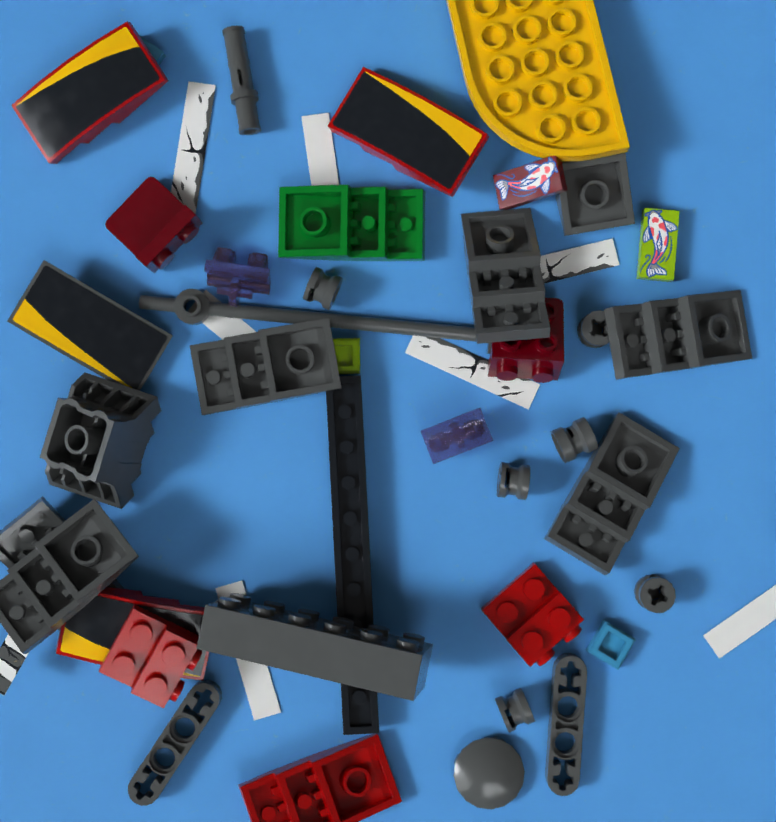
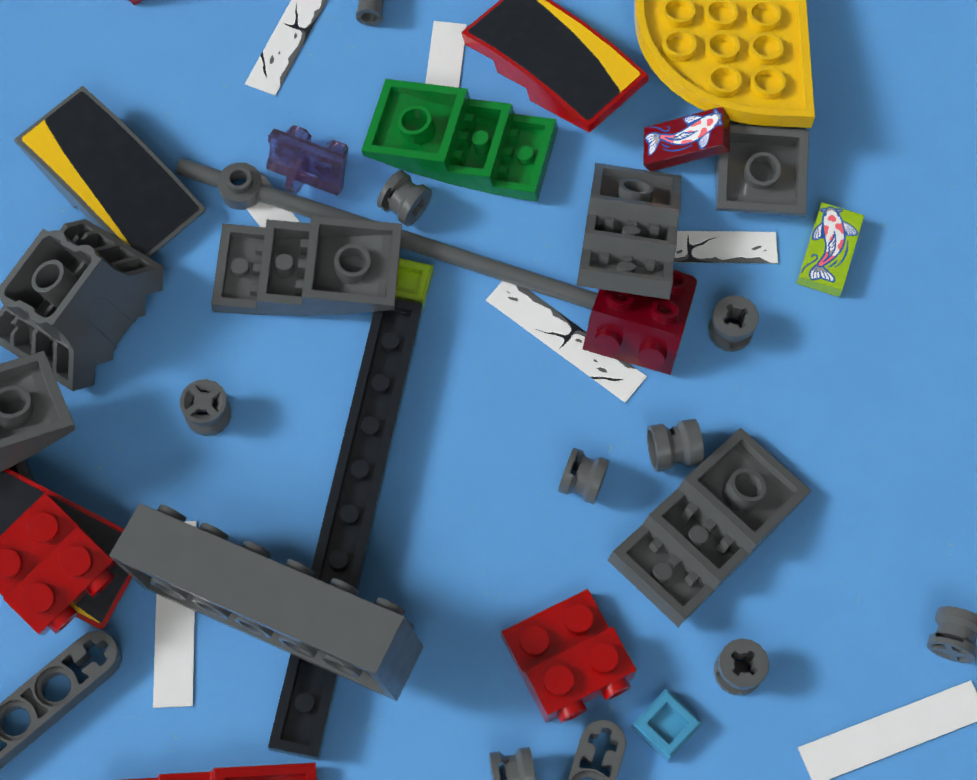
camera: 10 degrees right, 20 degrees down
(153, 224) = (225, 86): dark red bracket -> none
(217, 497) = (202, 397): none -> dark grey wheel
(456, 435) = (524, 400): clear purple hips -> none
(677, 334) = (835, 350): dark grey slope -> none

